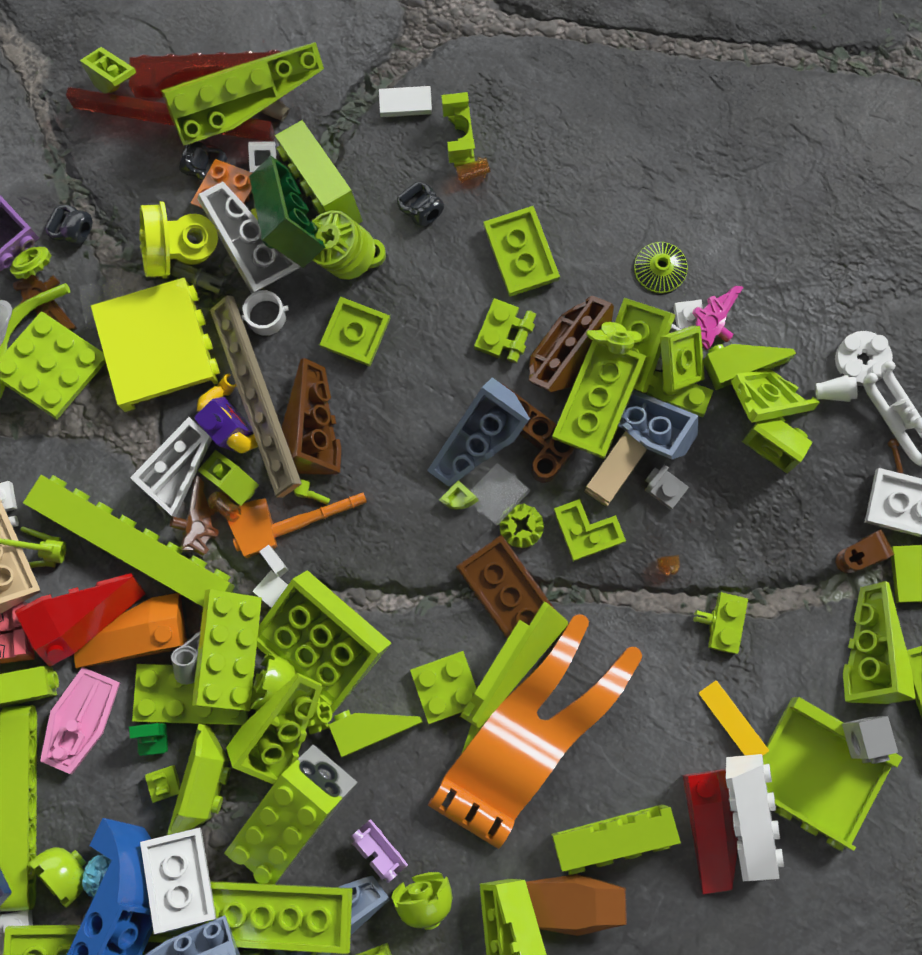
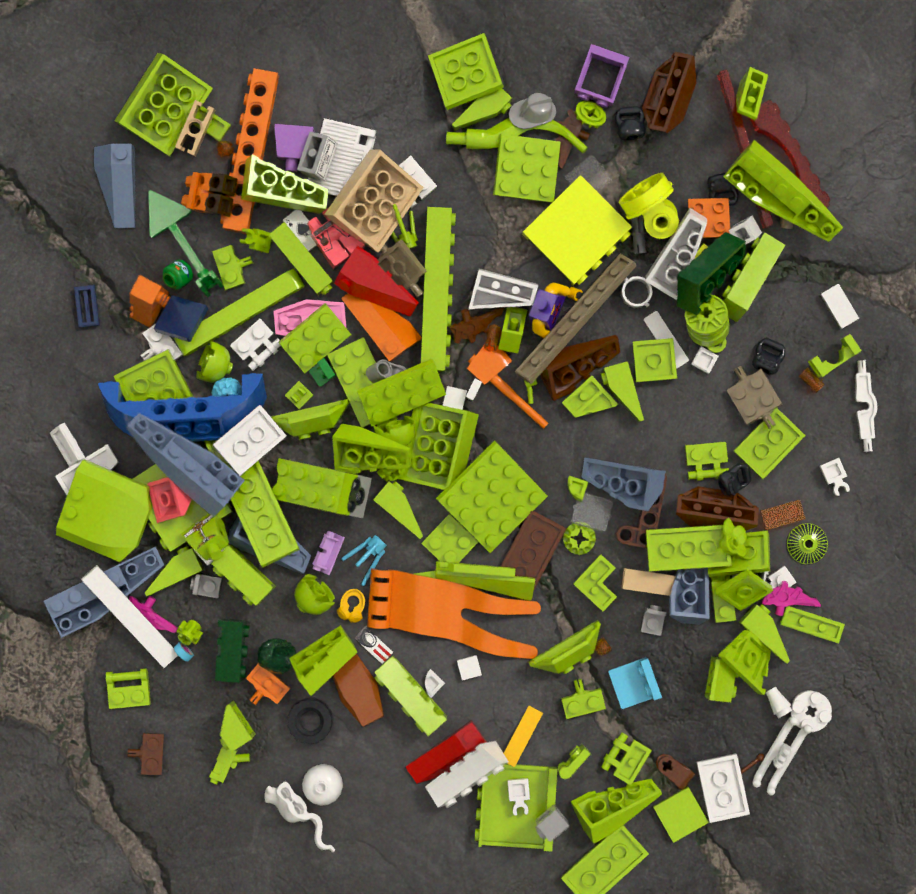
camera: 55 degrees right, 10 degrees up
(57, 160) = (670, 93): none -> reddish brown wedge
(63, 809) = (252, 340): none -> white plate
(75, 568) = (402, 265): none -> dark tan plate
(101, 726) = (314, 338): none -> lime plate
(324, 309) = (661, 331): none -> white sticker
(360, 430) = (588, 399): none -> lime wing
(366, 383) = (622, 386): none -> lime slope
(386, 277) = (704, 360): none -> white tile
(402, 786) = (374, 547): none -> medium azure plant
(414, 604) = (492, 496): none -> lime plate
(459, 239) = (754, 397): none -> dark tan plate
(476, 855) = (356, 615): none -> yellow piece
(526, 853) = (373, 645): none -> sticker
(540, 315) = (729, 480): none -> black piece
(547, 133) = (865, 417): none -> white piece
(593, 196) = (833, 473): none -> white plate
(612, 800) = (433, 683): none -> white tile
(613, 275) = (782, 514): none -> clear orange plate
(615, 743) = (469, 667): none -> white tile
(655, 607) = (569, 651): none -> lime wedge
(733, 546) = (634, 683): none -> medium azure bracket
(760, 306) = (812, 624): none -> lime tile
(796, 664) = (577, 757): none -> lime plate
(805, 762) = (519, 792): none -> white plate
(830, 601) = (632, 761): none -> lime plate

